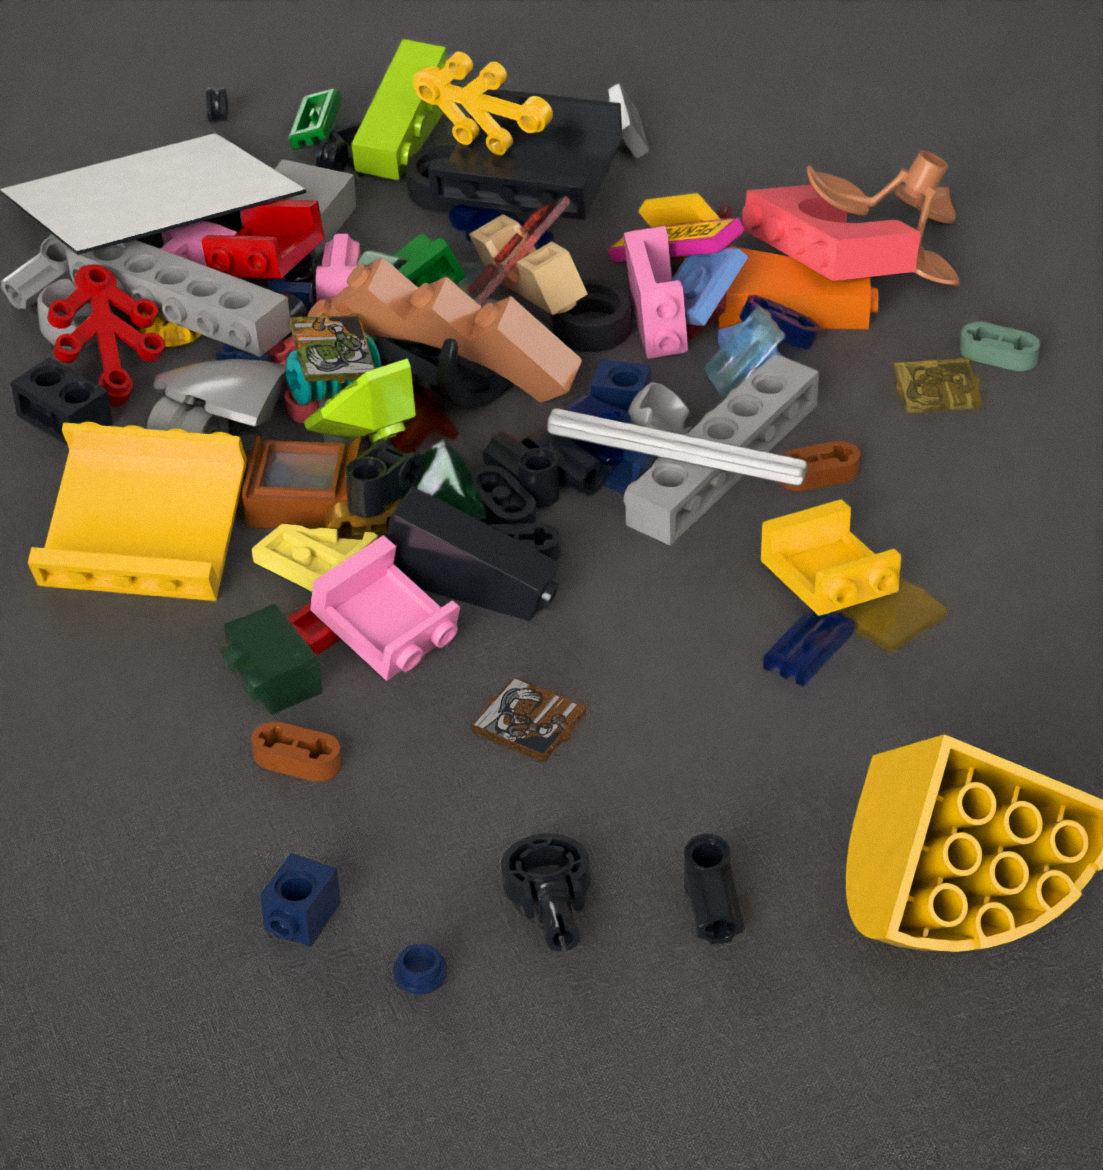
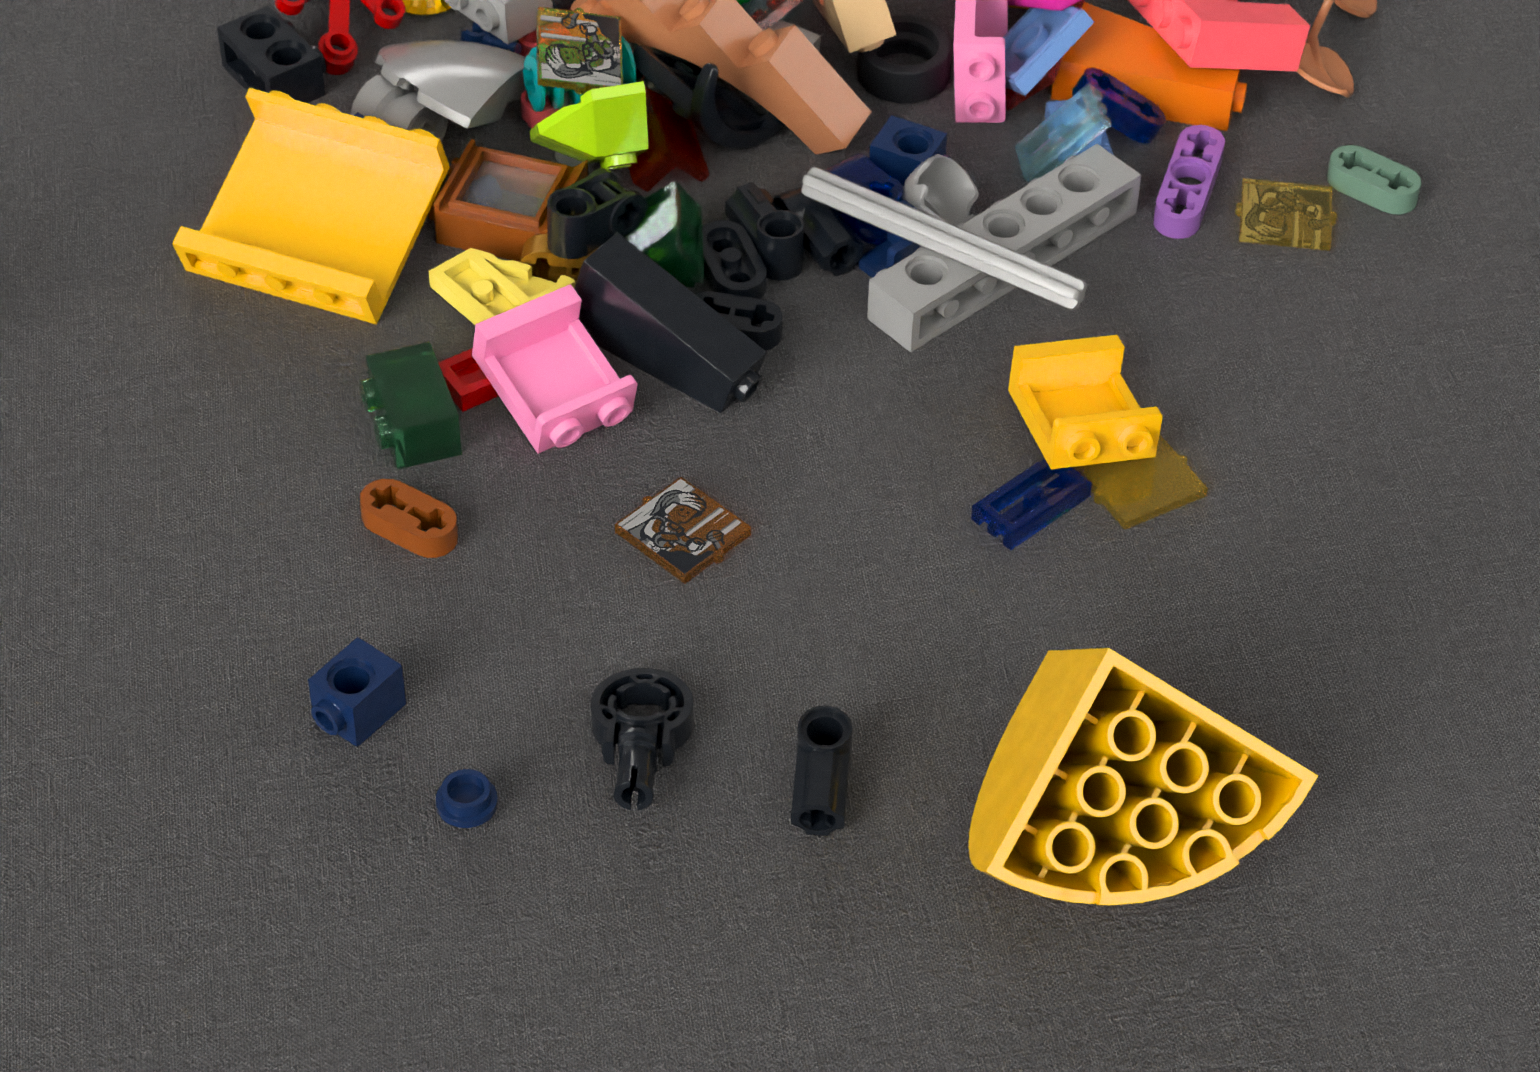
camera: 10 degrees right, 5 degrees up
(827, 464) = (1114, 287): dark orange beam -> none
(861, 383) = (1192, 196): none -> medium lavender beam

